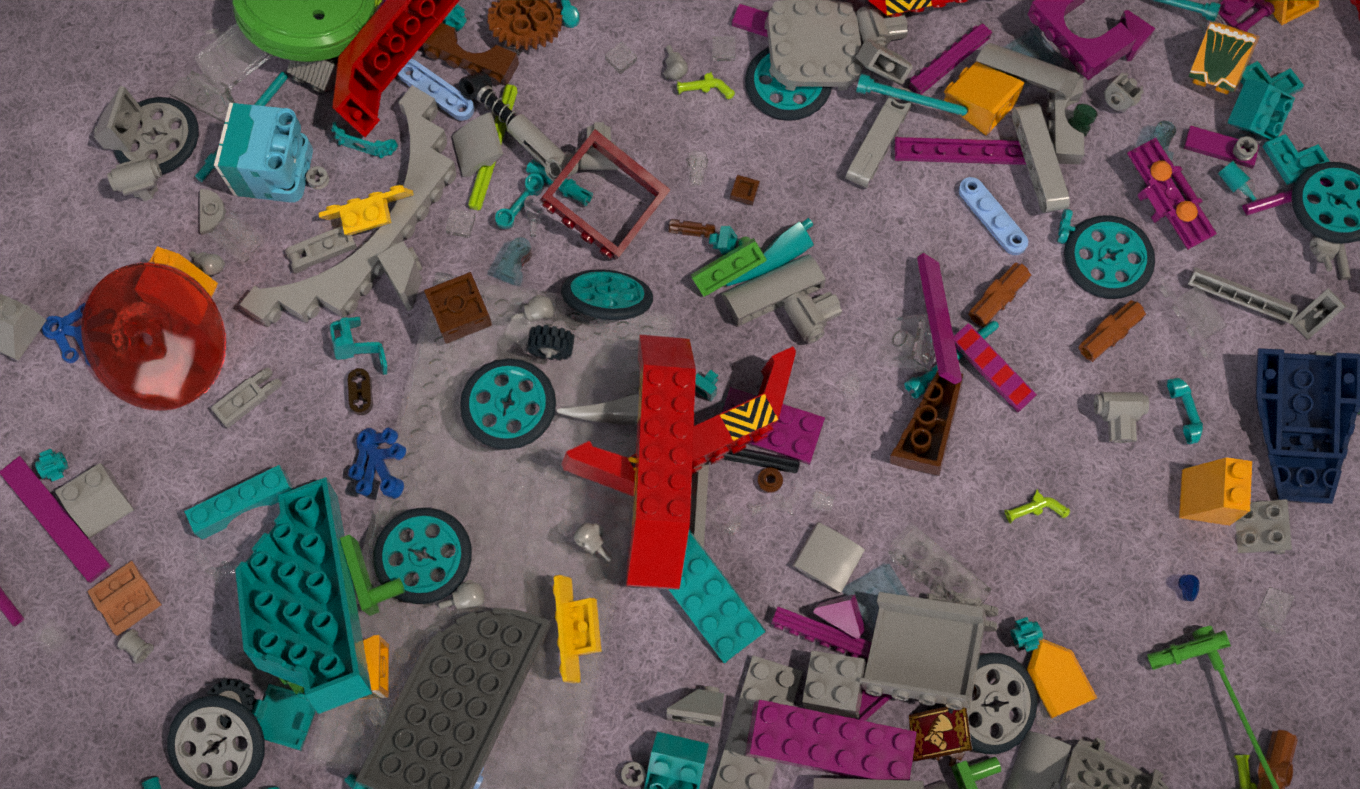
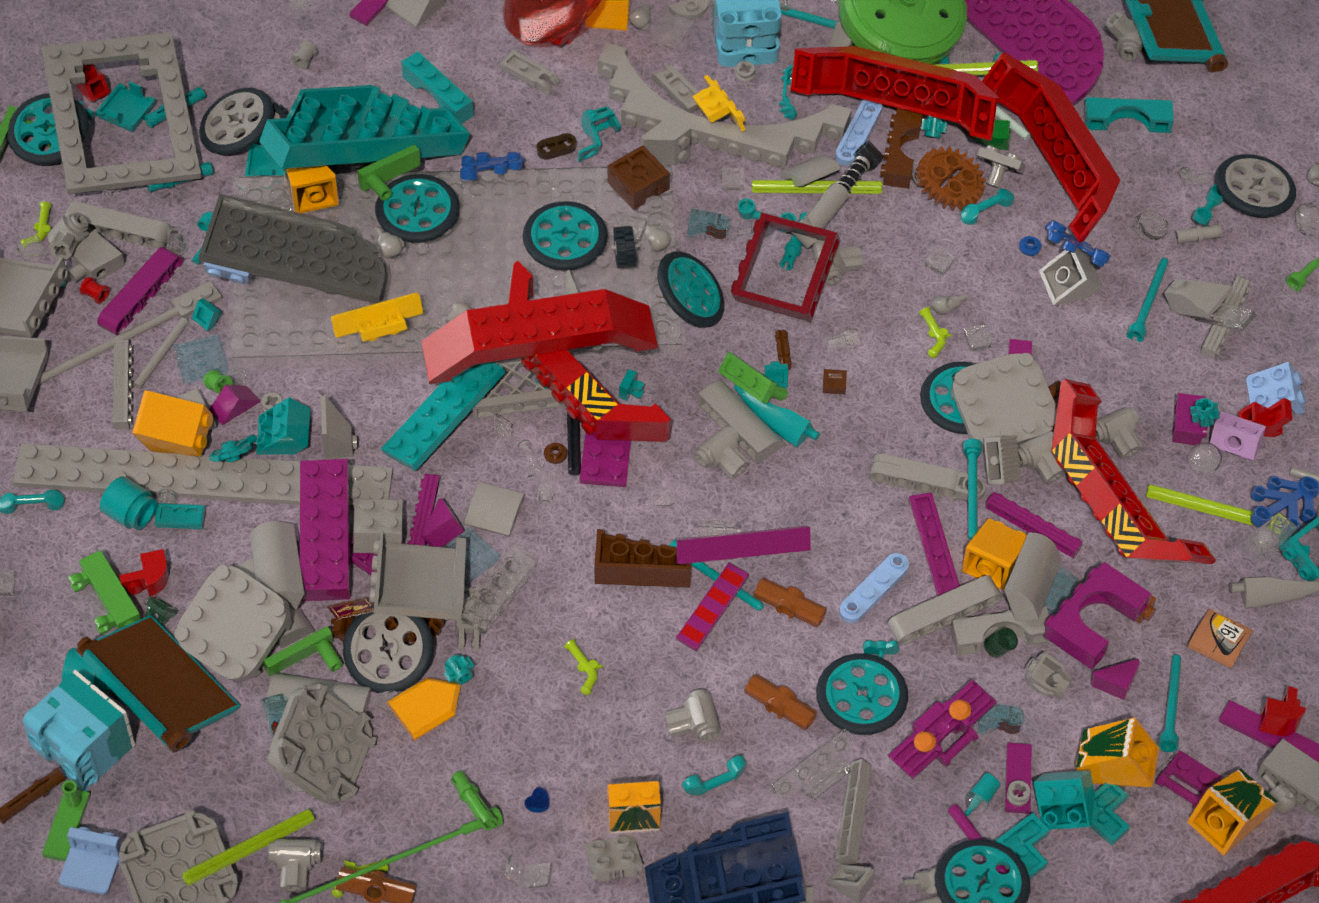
camera: 75 degrees right, 15 degrees down
(124, 598) = (341, 39): nougat slope -> none

